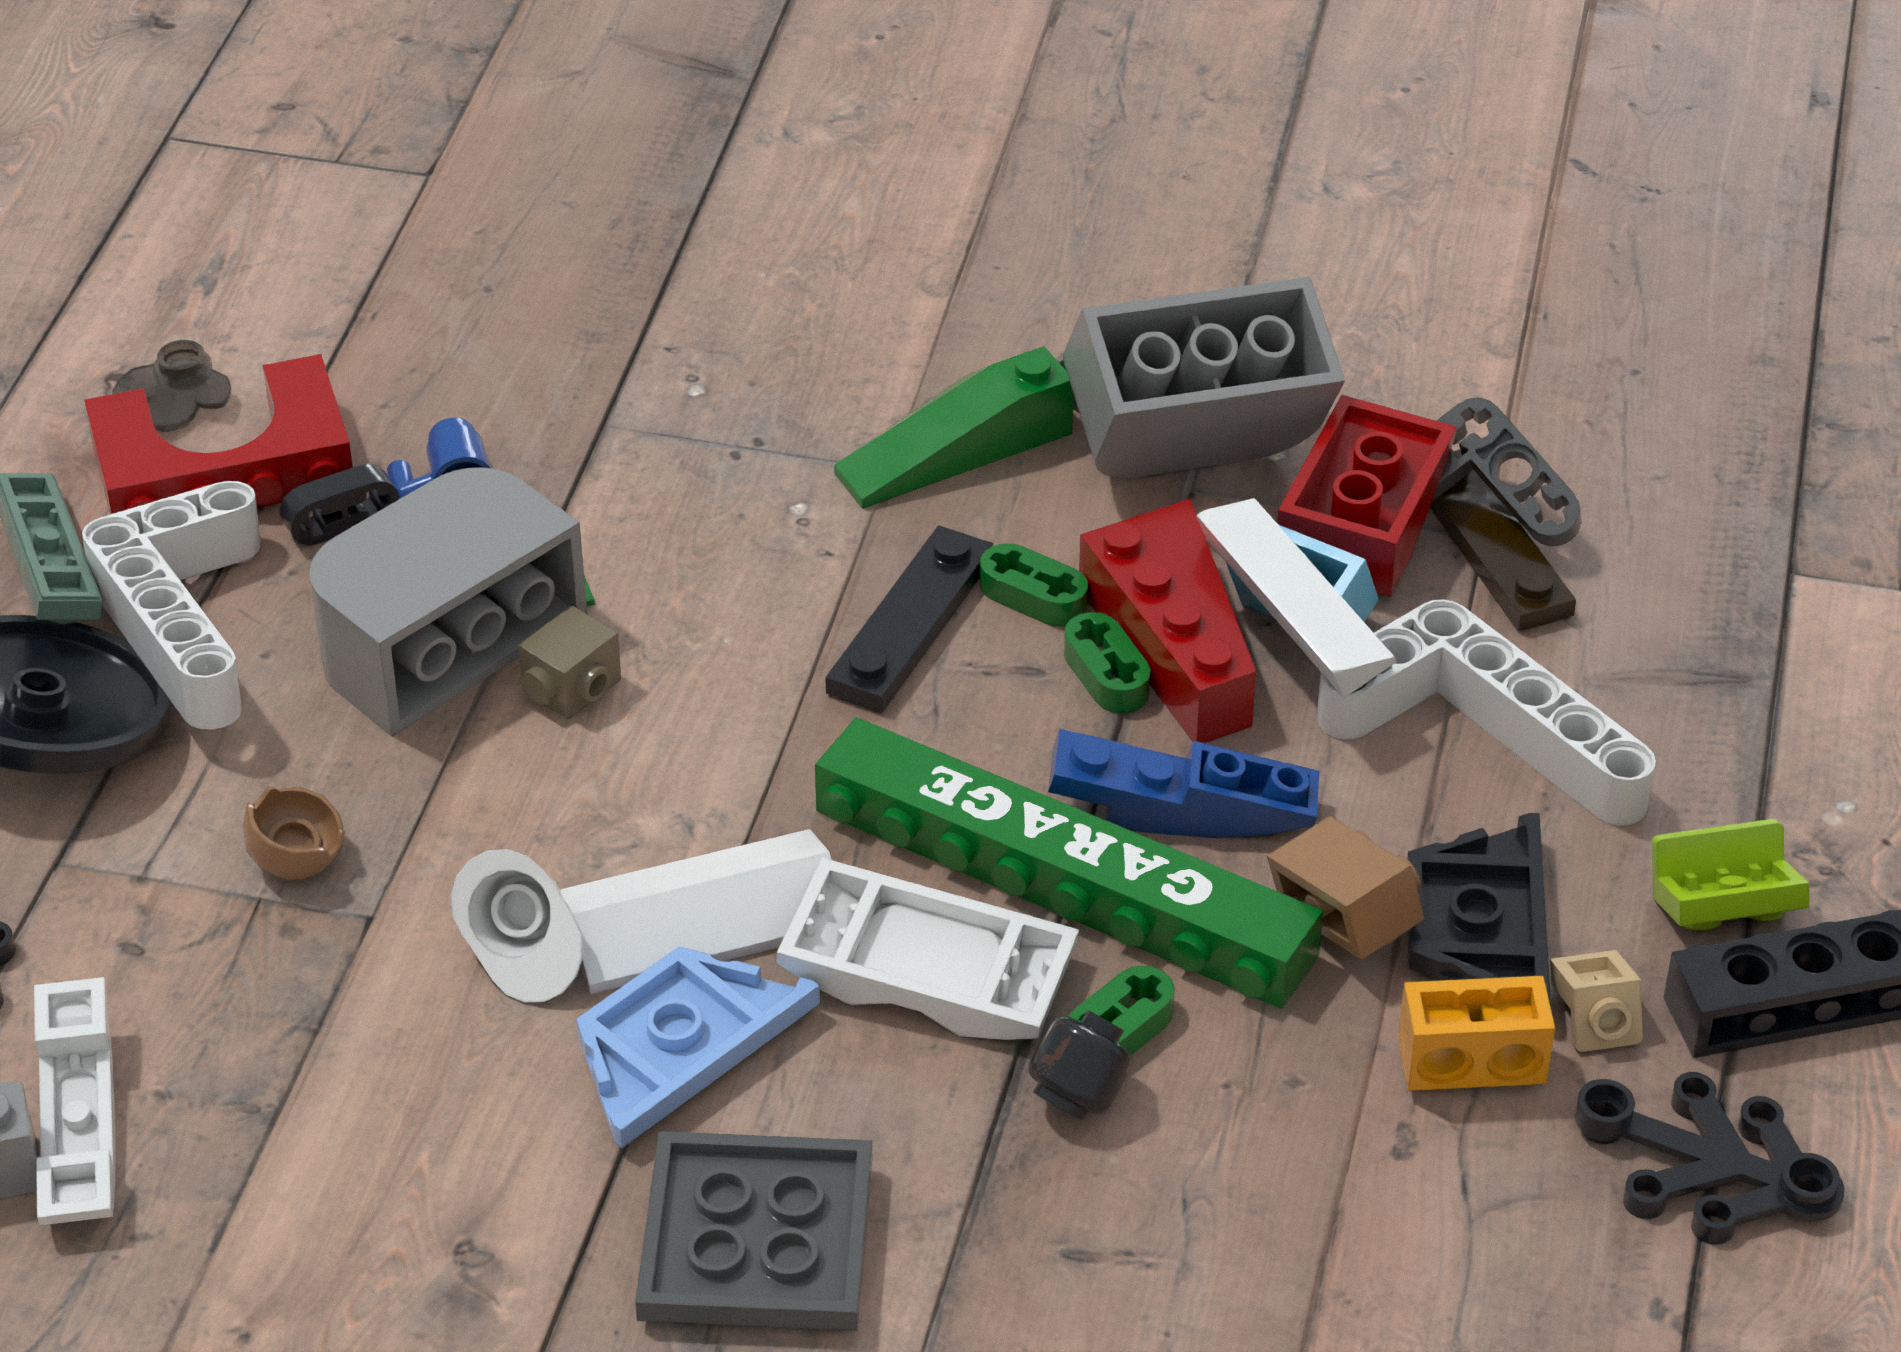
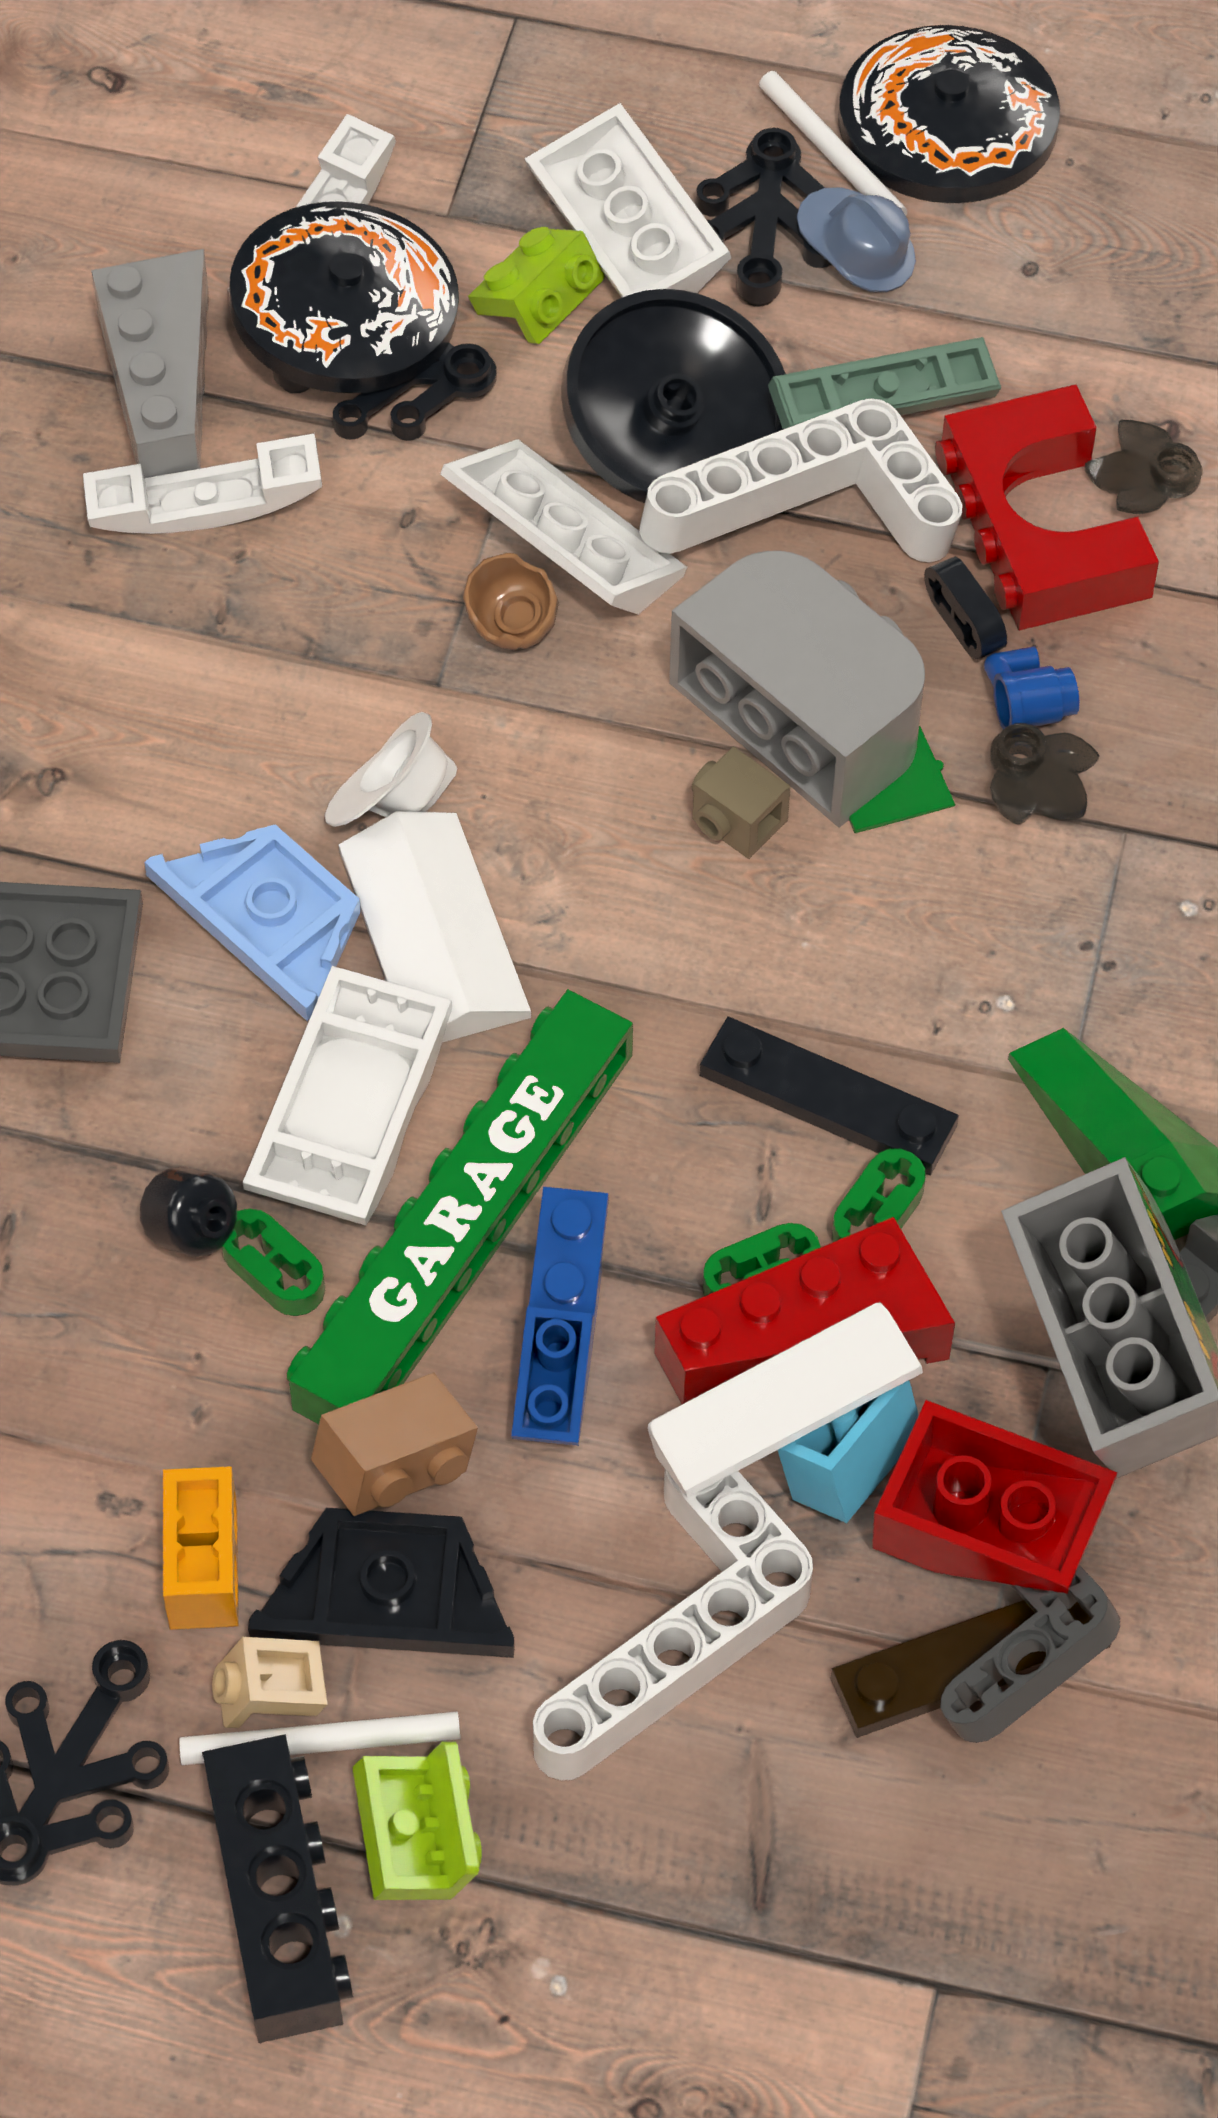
camera: 90 degrees right, 15 degrees up
(175, 801) = (566, 524): none -> white slope
(551, 469) = (1043, 780): none -> clear smoke plate
(1642, 961) = (335, 1735): none -> white bar

